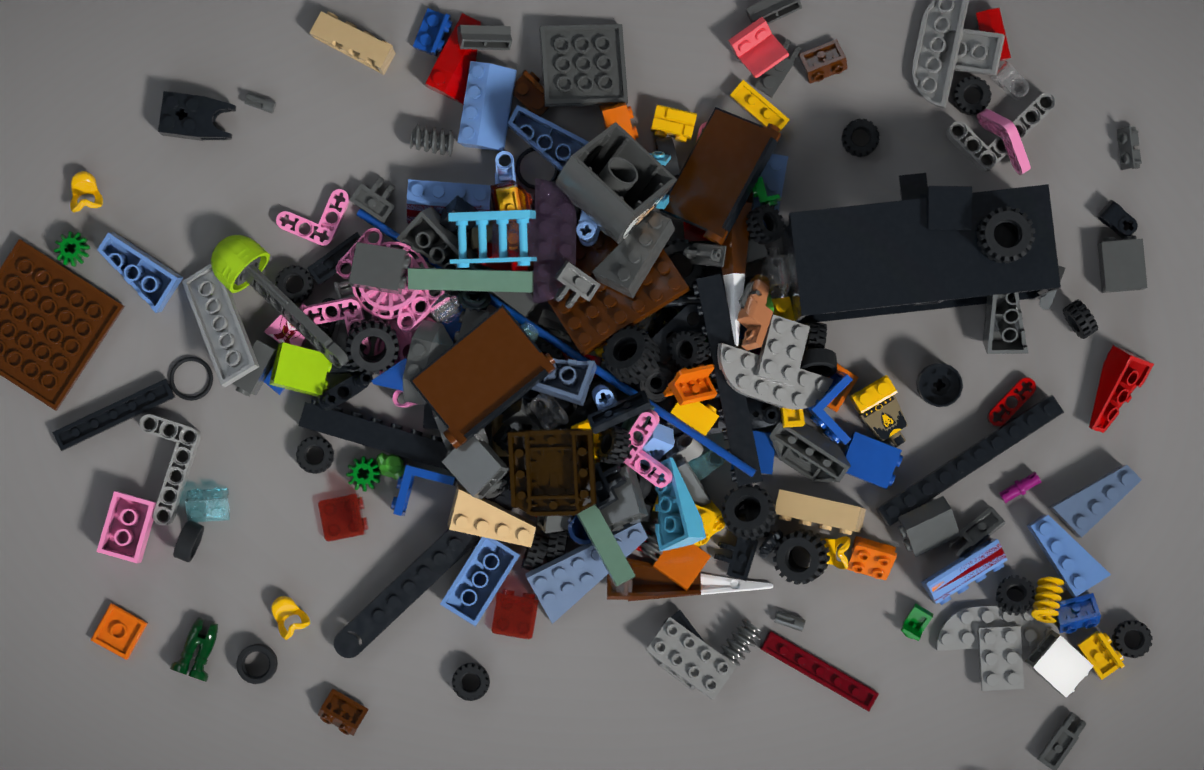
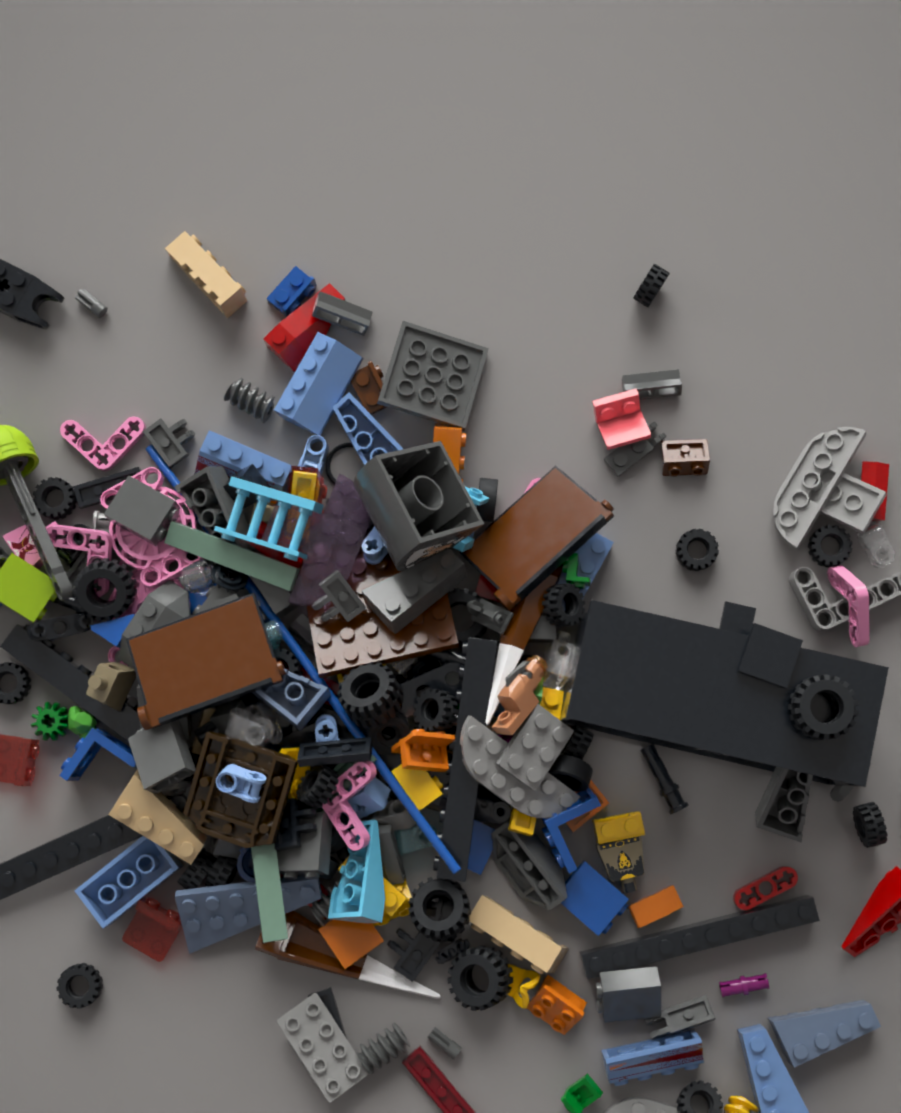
camera: 25 degrees right, 5 degrees down
(408, 423) = (111, 684): none -> dark tan torso
(535, 417) = (248, 727): none -> clear piece
(554, 463) = (245, 785): none -> light blue piece
(673, 123) = (506, 467): yellow brick -> none
(758, 106) = (600, 480): yellow plate -> none
(904, 348) = (669, 789): none -> black pin
(926, 449) = (655, 906): none -> orange slope
(948, 393) = (698, 855): black wheel -> none

